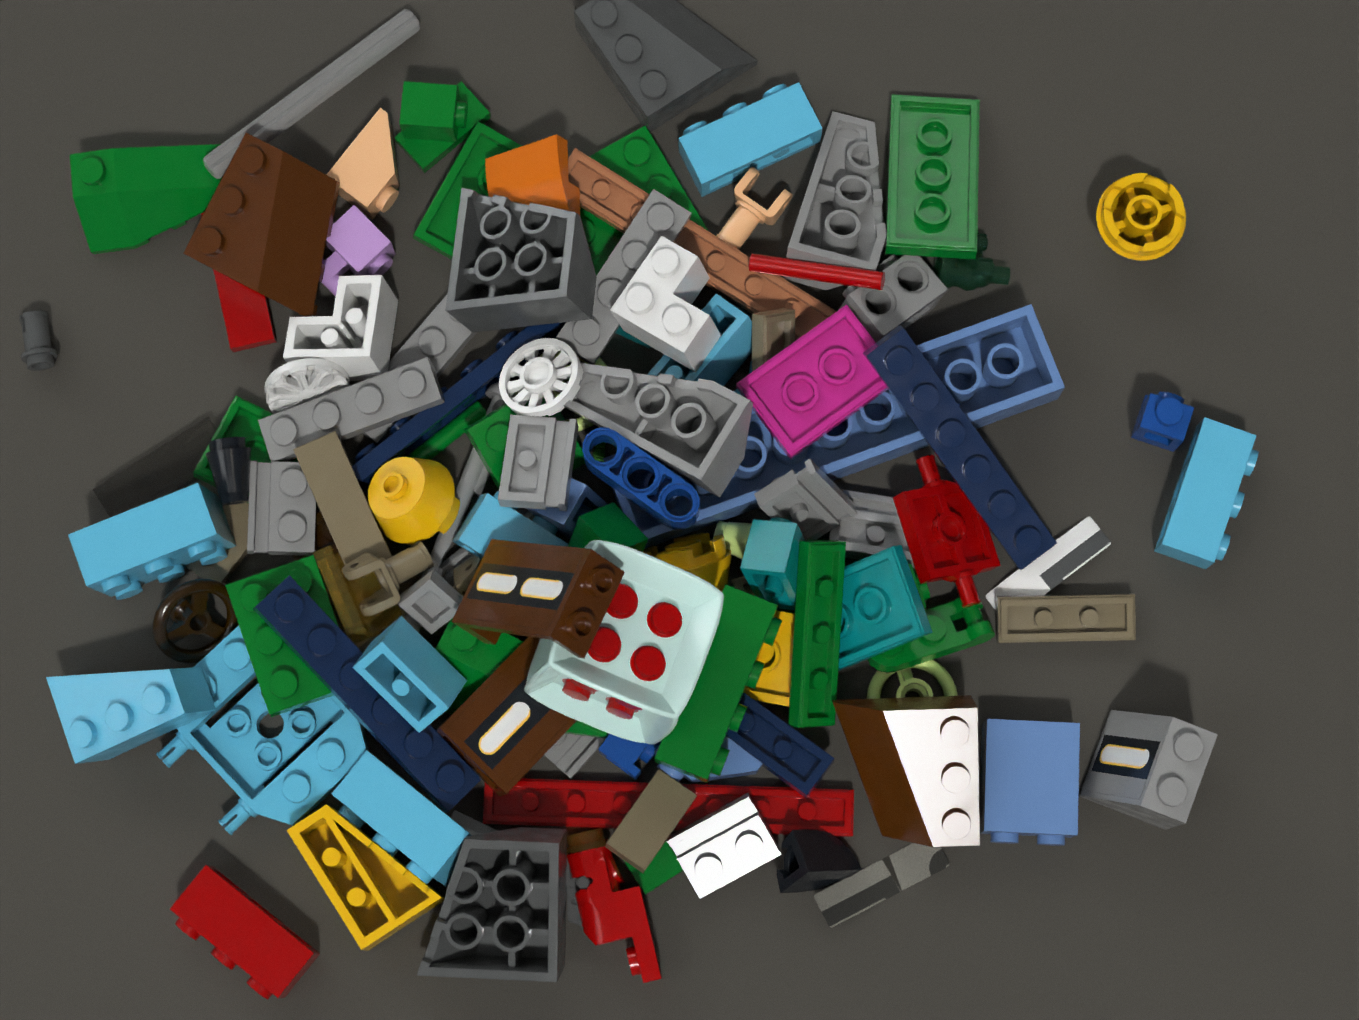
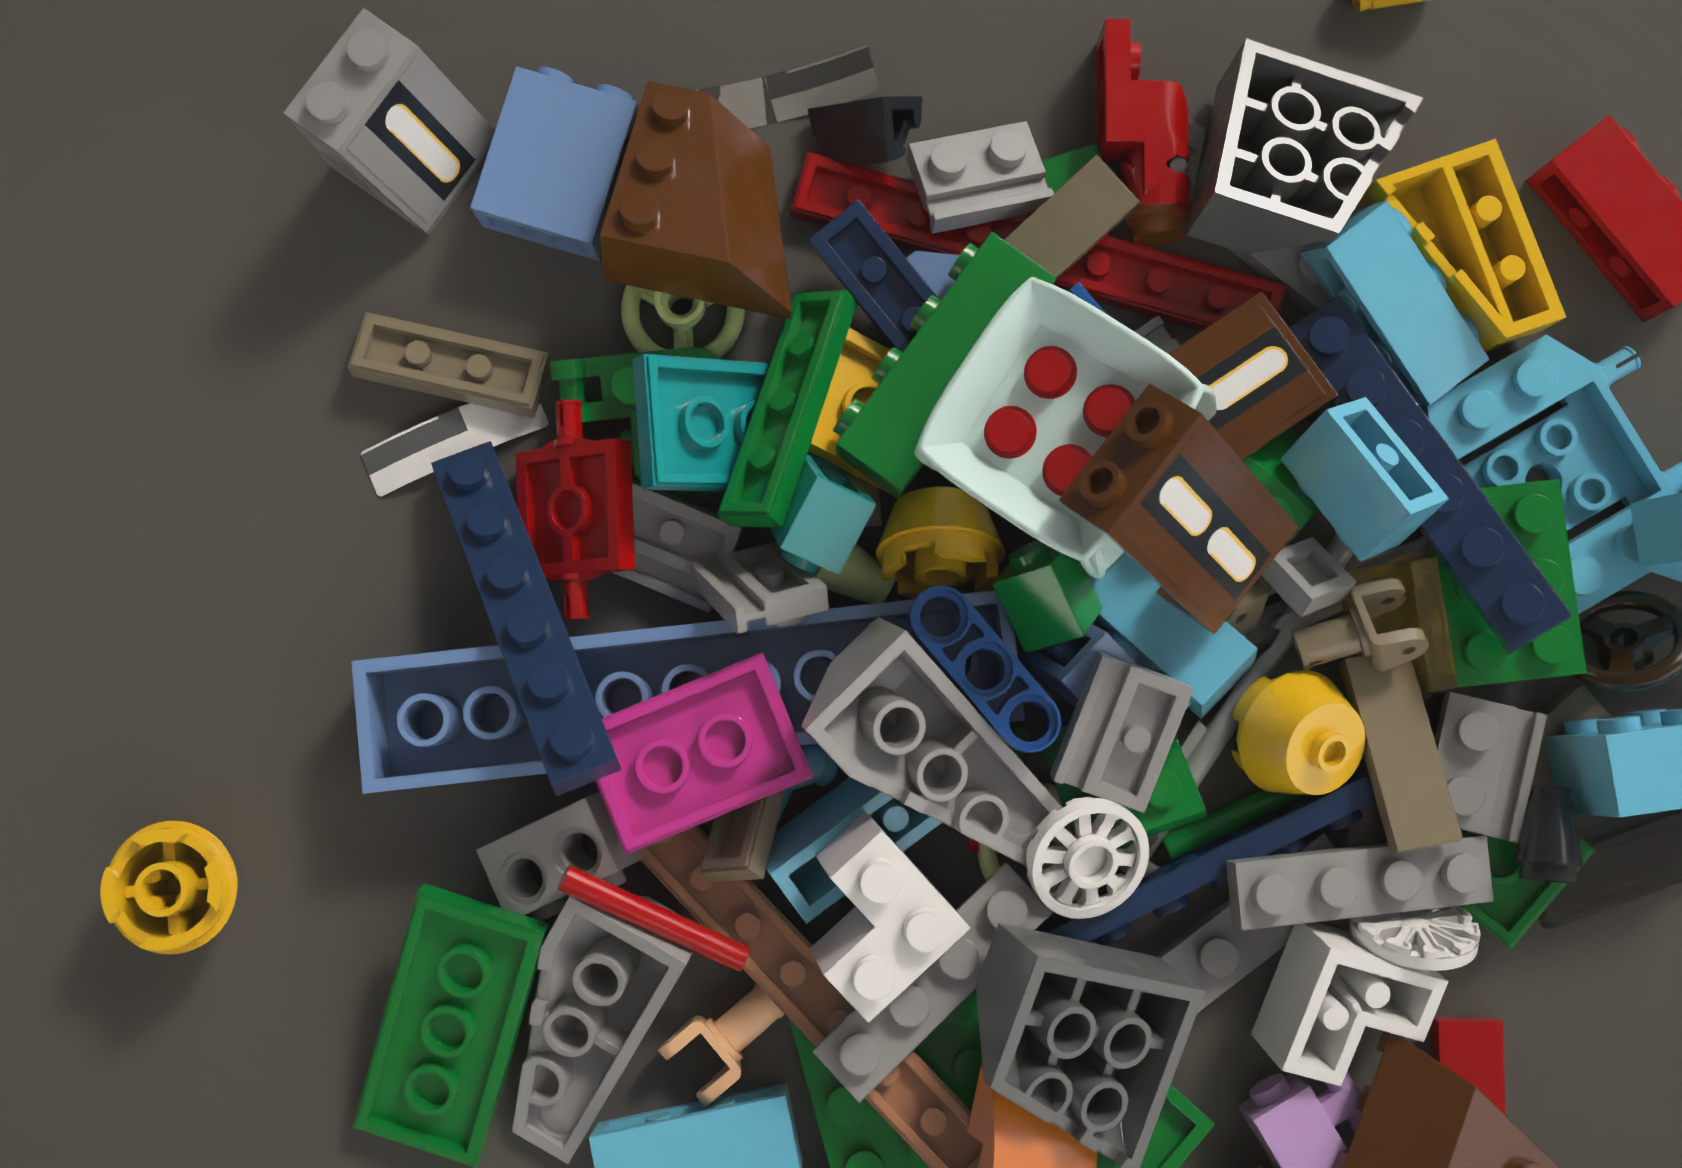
camera: 170 degrees left, 5 degrees up
(971, 273) = (438, 867): clear green piece -> none
(1162, 420) = (235, 594): blue brick -> none
(1207, 494) = (207, 480): medium azure brick -> none

